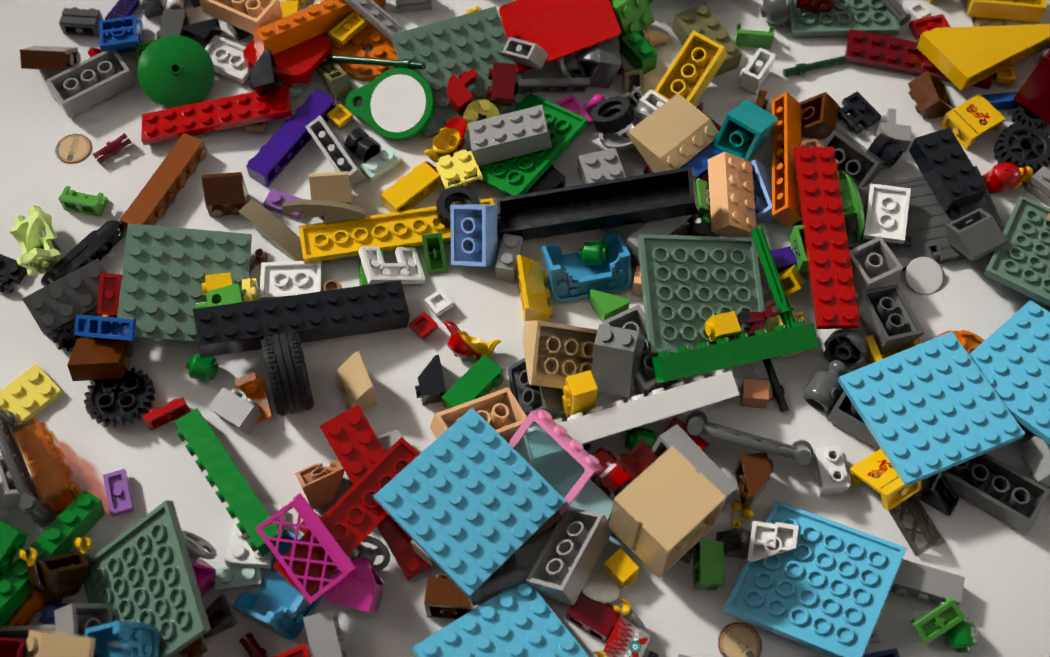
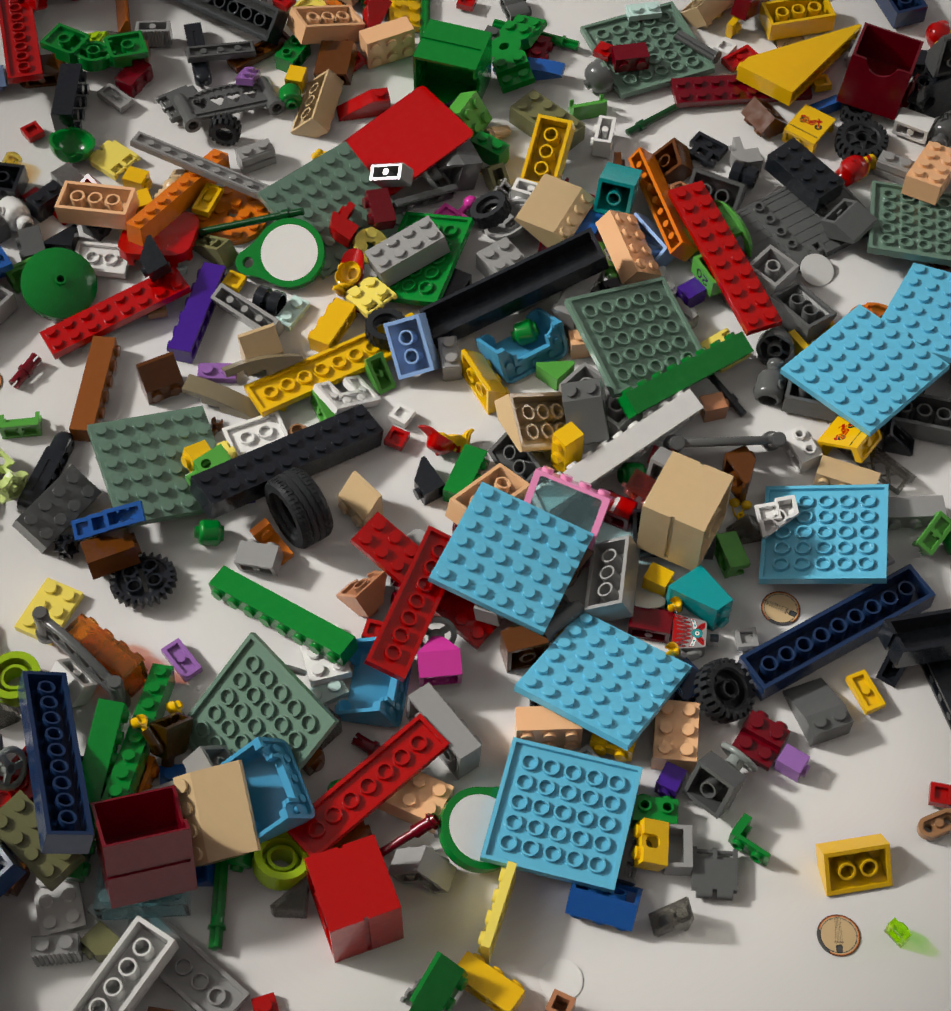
camera: 20 degrees left, 5 degrees down
(109, 294) = (96, 491): red plate -> none
(160, 416) = (194, 581): red plate -> none
(319, 532) = (399, 619): dark pink fence -> none
(655, 608) = (702, 597): none -> teal slope
(722, 326) = (666, 355): yellow brick -> none
(757, 318) = (691, 342): dark red piece -> none
(773, 277) = (691, 304): green axle -> none
(791, 280) = (705, 306): yellow brick -> none
(864, 516) = (837, 472): none -> tan brick
(887, 213) = (766, 225): white plate -> none

